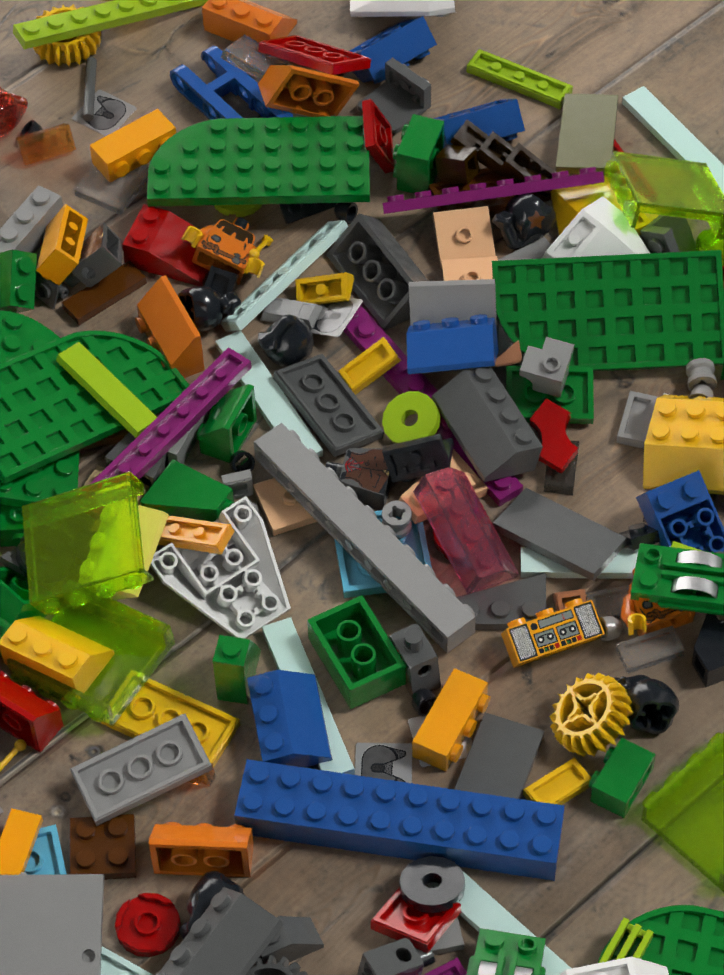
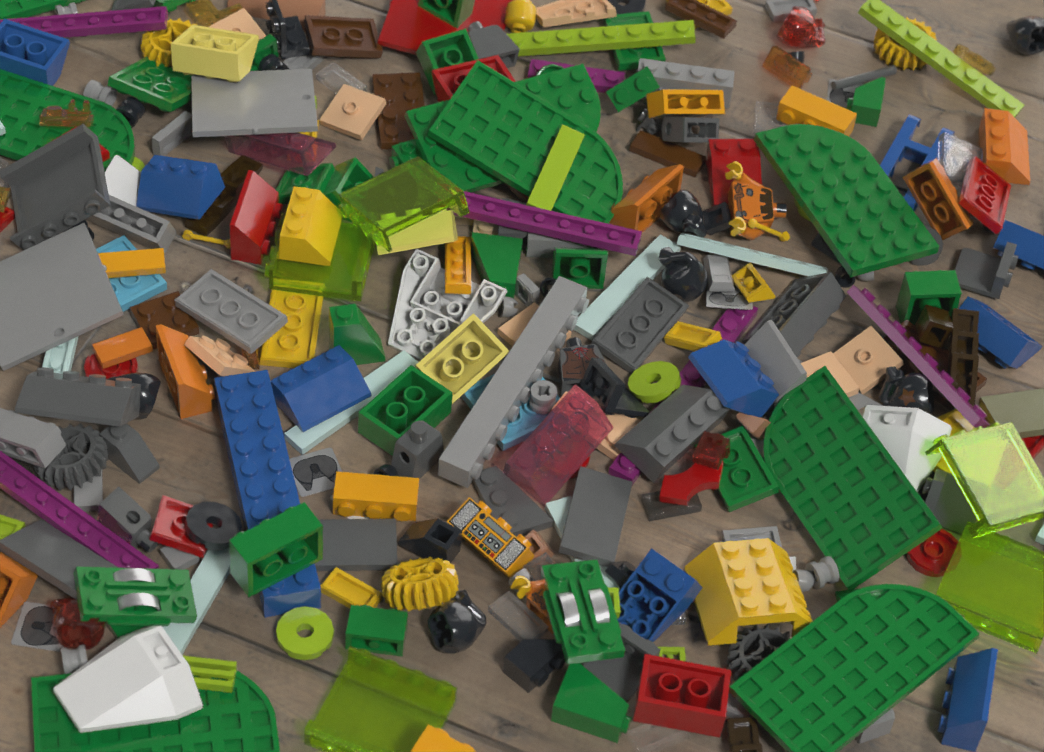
camera: 60 degrees right, 5 degrees down
(132, 97) = (868, 102): none -> green slope
(133, 900) = (122, 347): none -> orange tile
(200, 803) = (218, 356): none -> light nougat plate
(311, 571) = (463, 357): none -> light yellow slope
(378, 136) = (928, 255): red tile -> none
(523, 821) = (276, 549): none -> green brick
(532, 686) = (432, 539): none -> black slope
(535, 400) = (711, 450): none -> clear red bracket
(548, 366) = (749, 446): light grey brick -> none
(594, 830) = (305, 619): none -> lime tile

